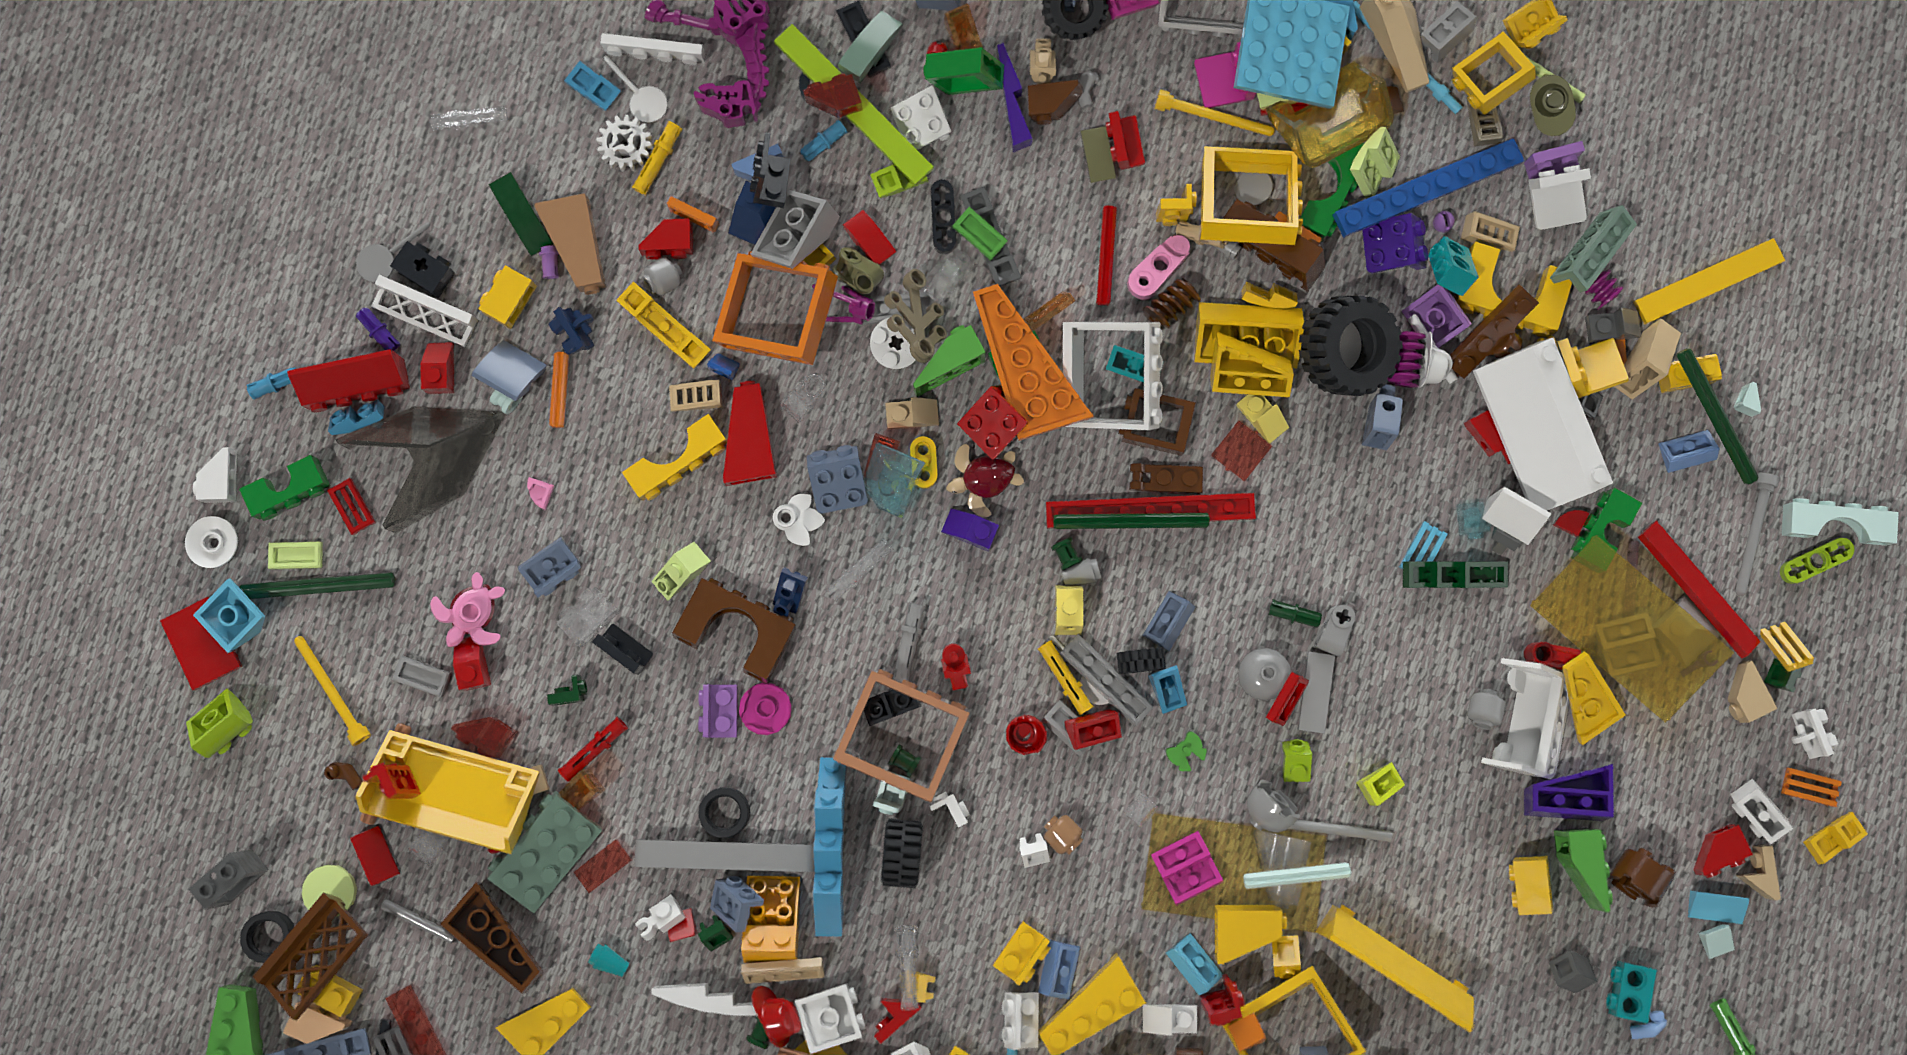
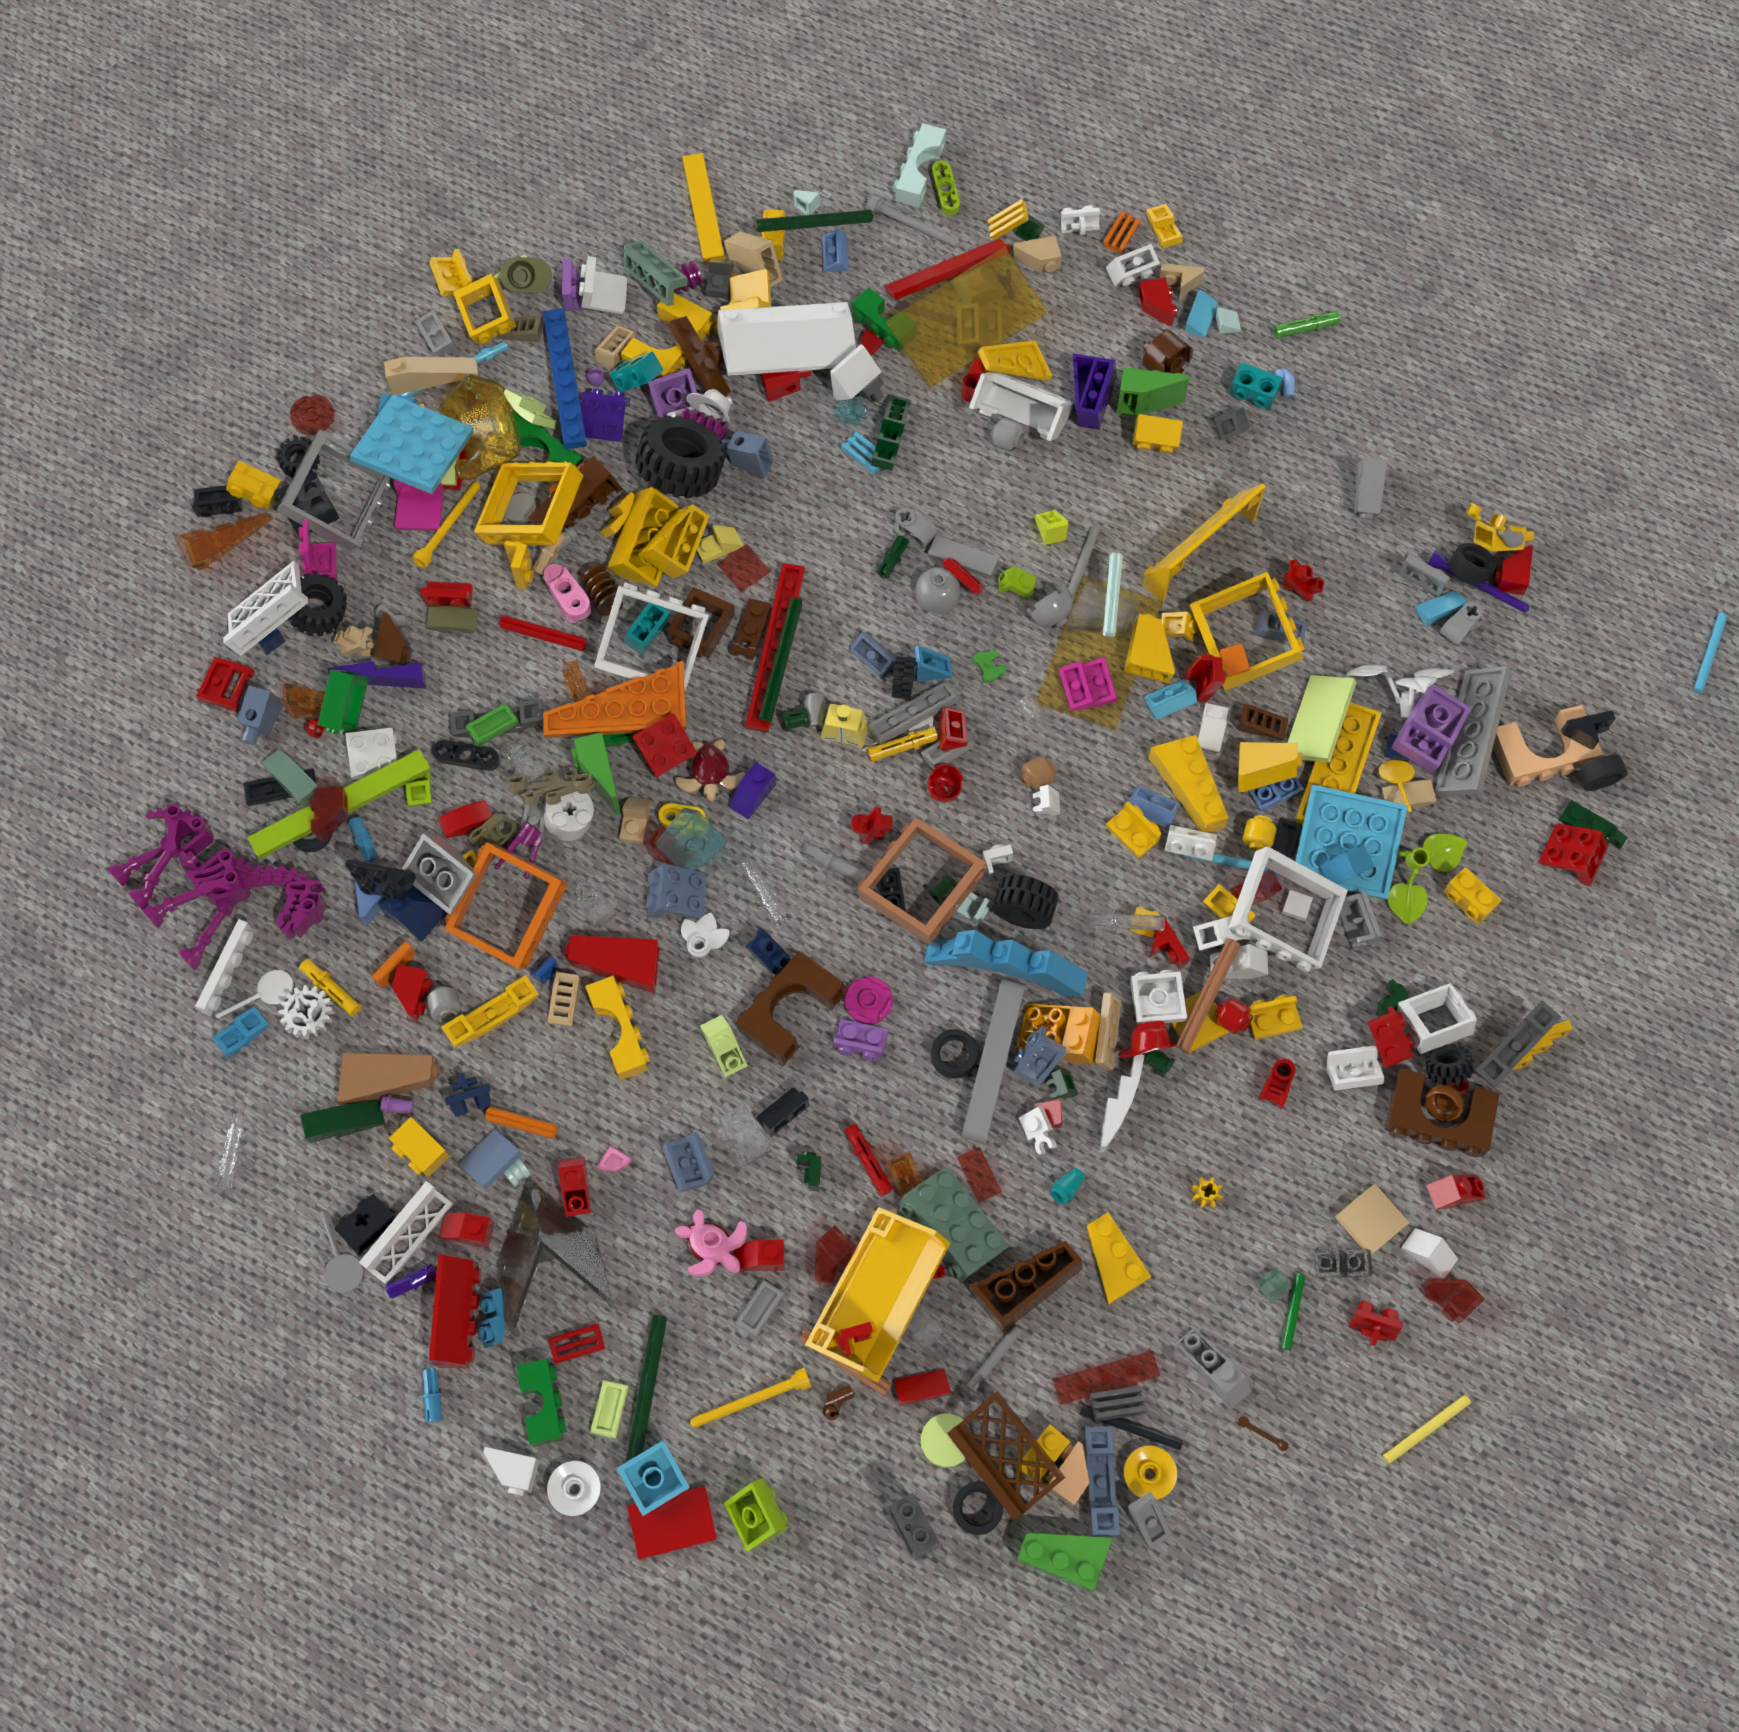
camera: 80 degrees left, 15 degrees down
(502, 460) = (574, 1186): none -> red slope

